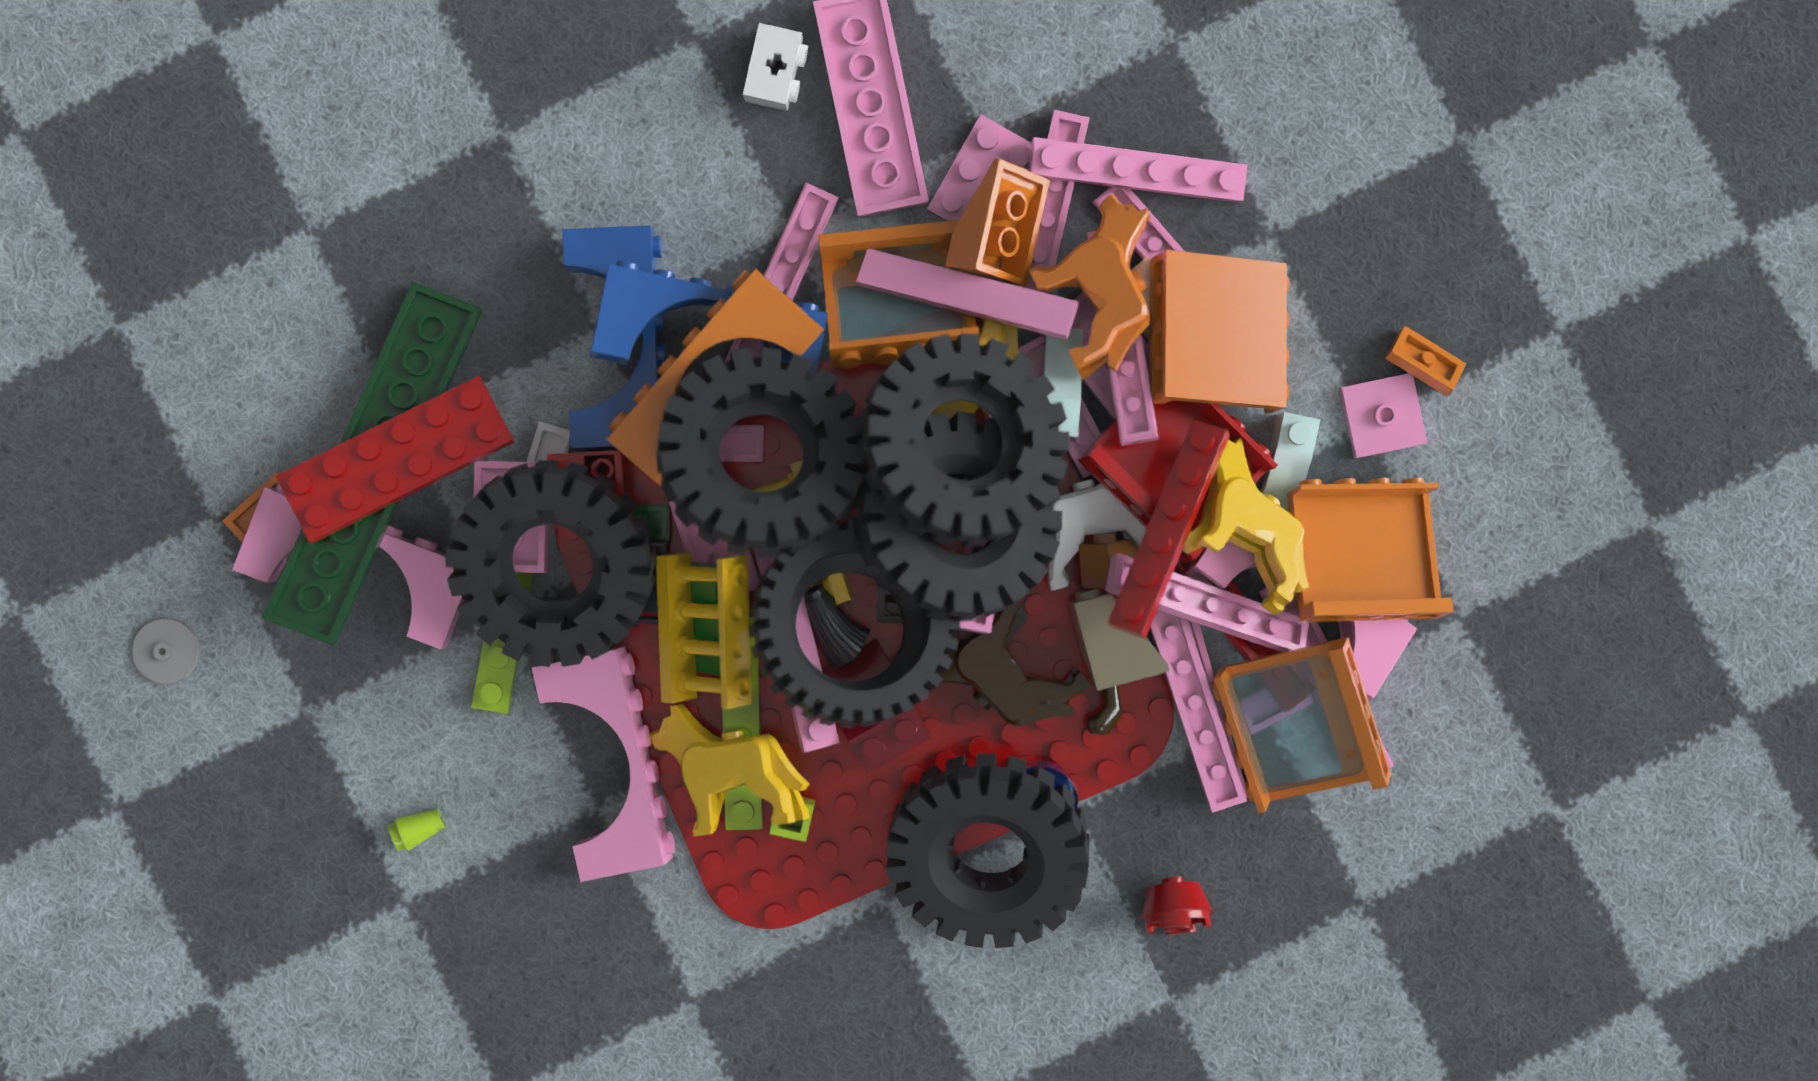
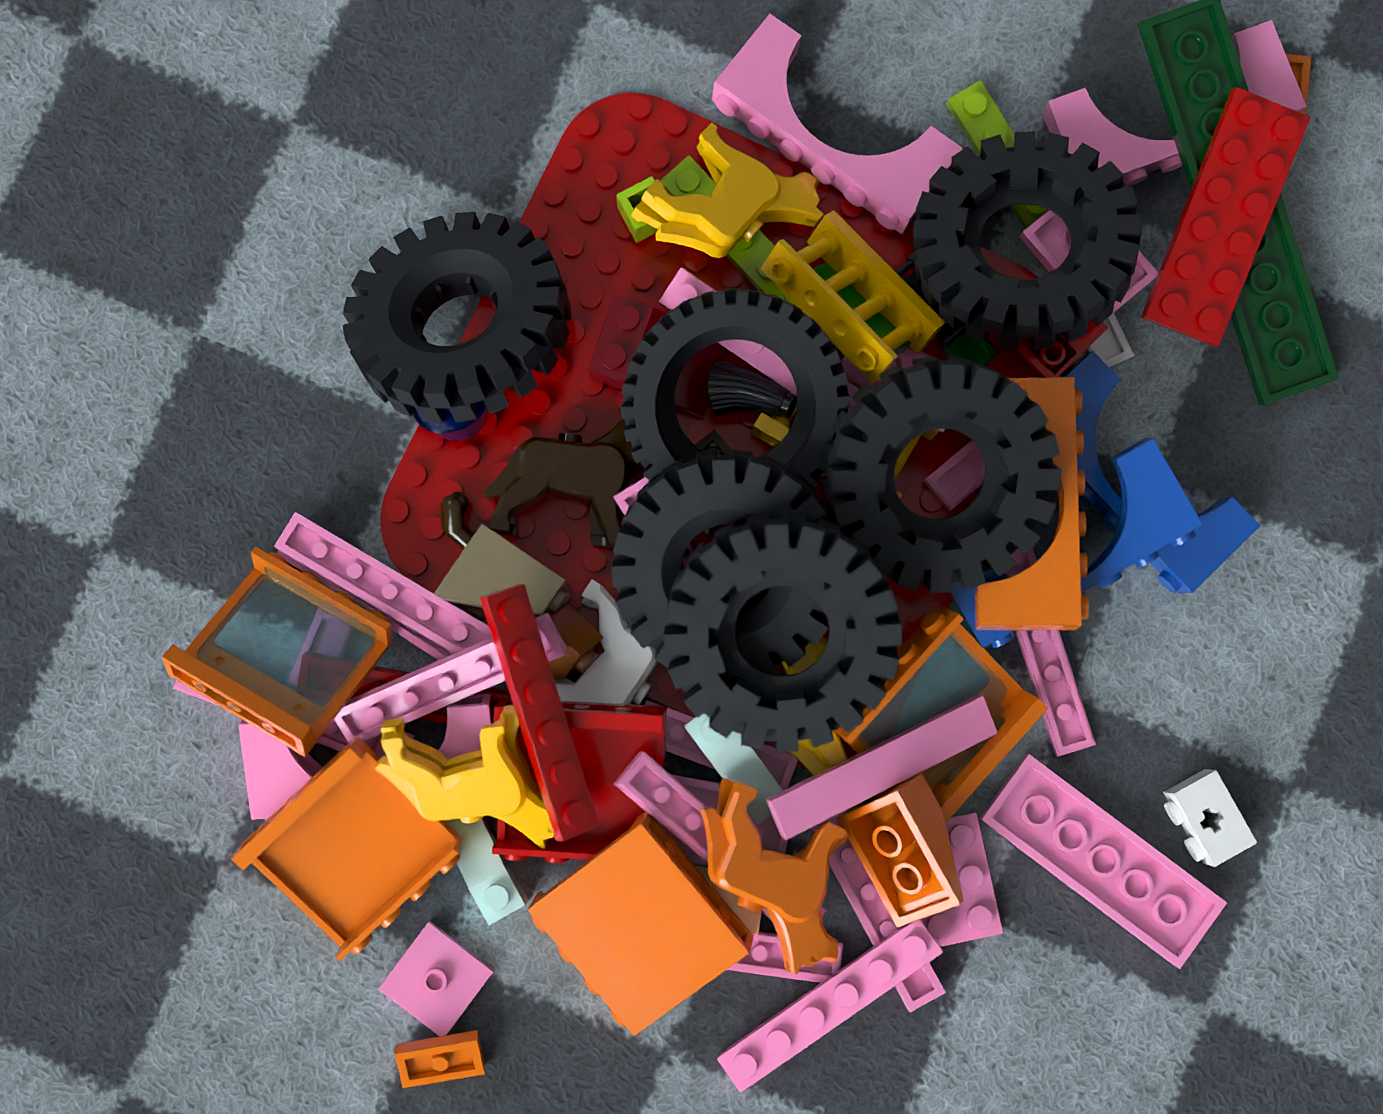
camera: 130 degrees right, 5 degrees down
(1175, 907) = (259, 409): red cone -> none

